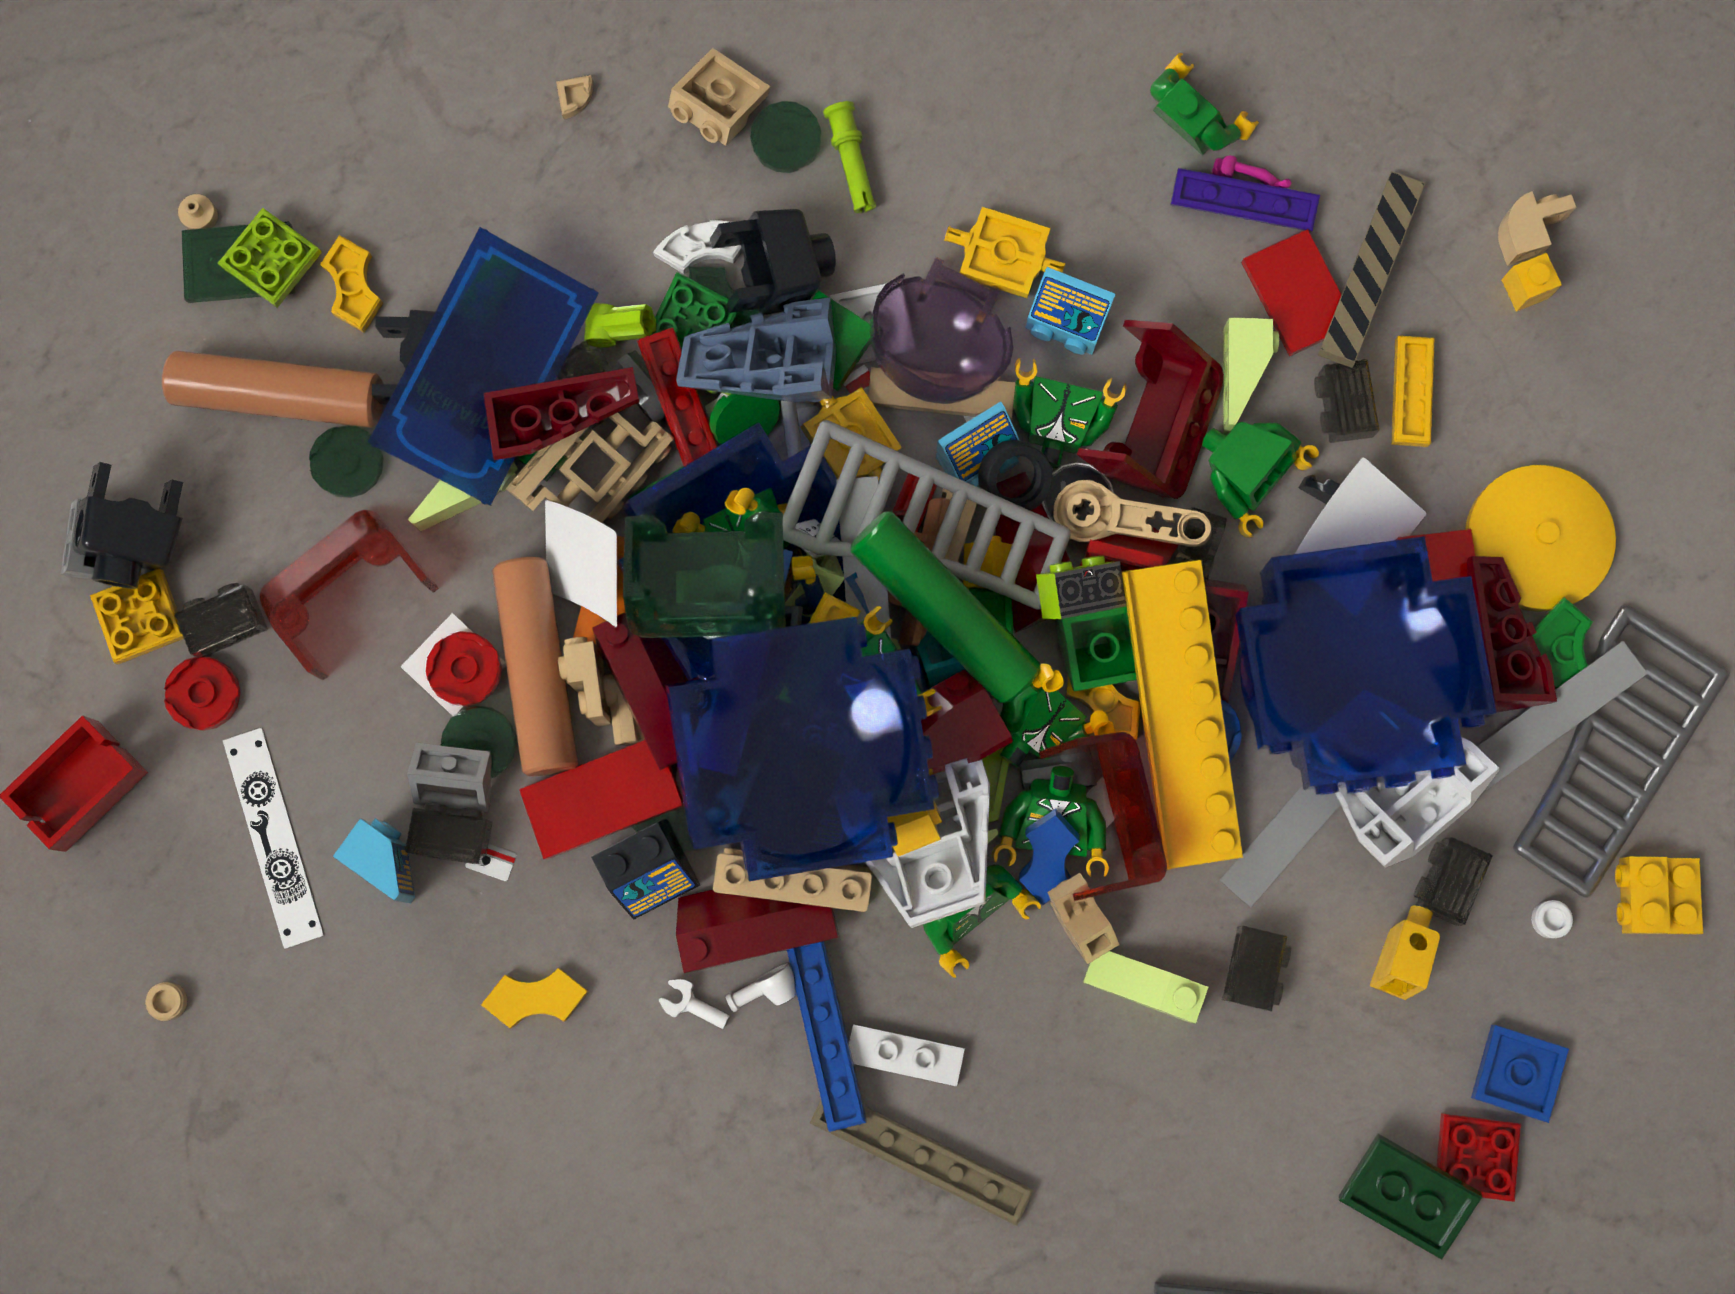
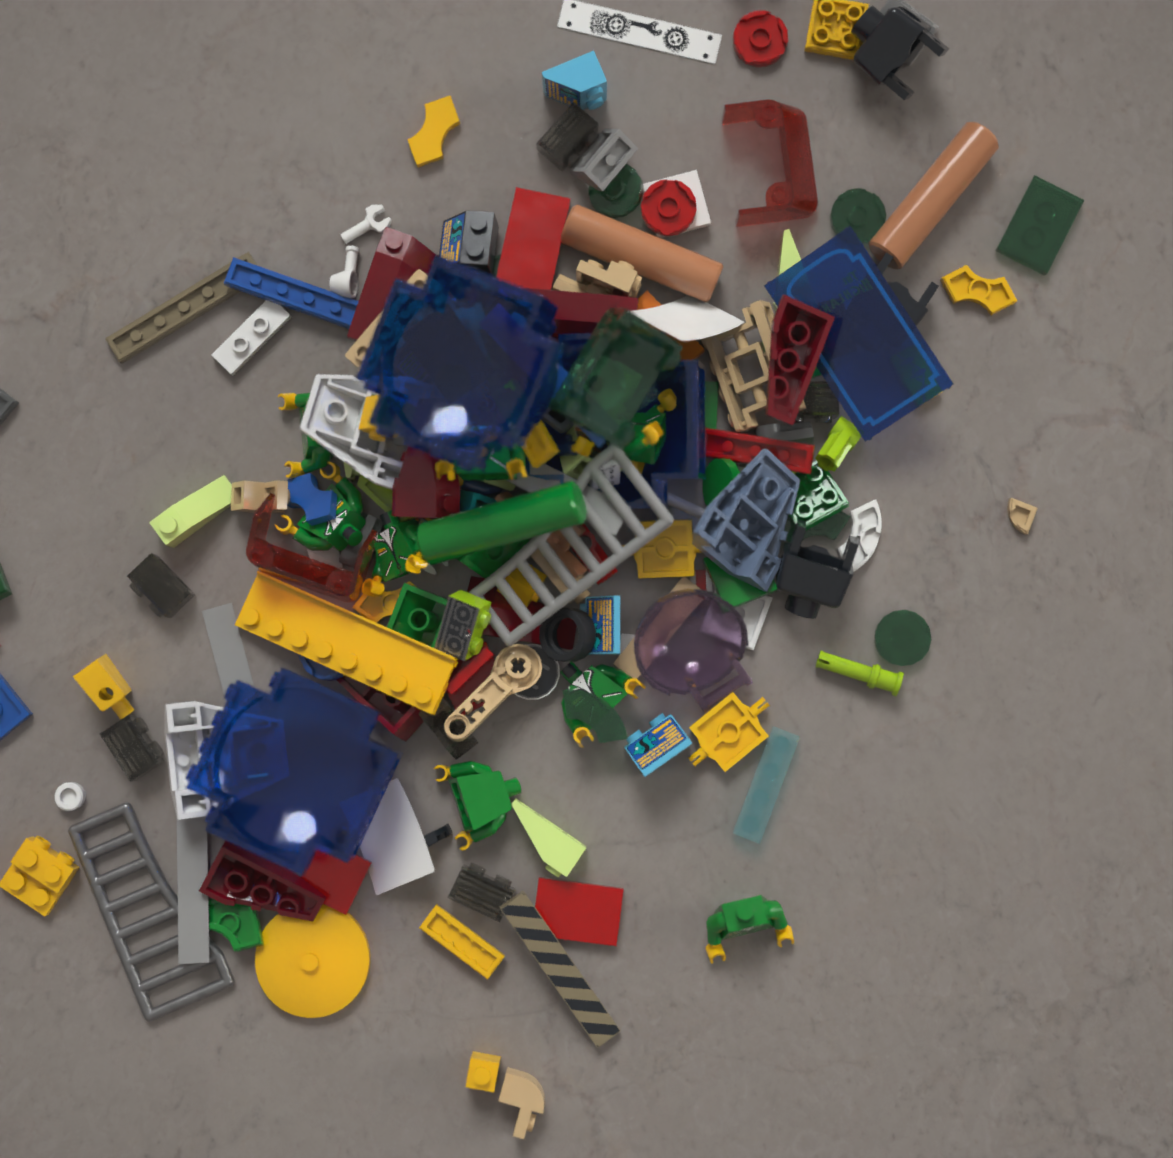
camera: 125 degrees right, 5 degrees up
(197, 212) = (1091, 218): tan tile -> none
(220, 620) = (799, 75): clear smoke brick -> none
(269, 257) = (1028, 245): lime tile -> none
(497, 863) = (533, 160): sticker -> none
(717, 97) = (957, 607): tan plate -> none
(1035, 180) = (766, 784): none -> clear light blue plate
(1080, 394) = (596, 714): none -> clear green tile
(1170, 416) = (544, 763): dark red windscreen -> none
(1227, 166) = (694, 920): dark pink piece -> none
(1245, 200) = (663, 918): dark purple tile -> none

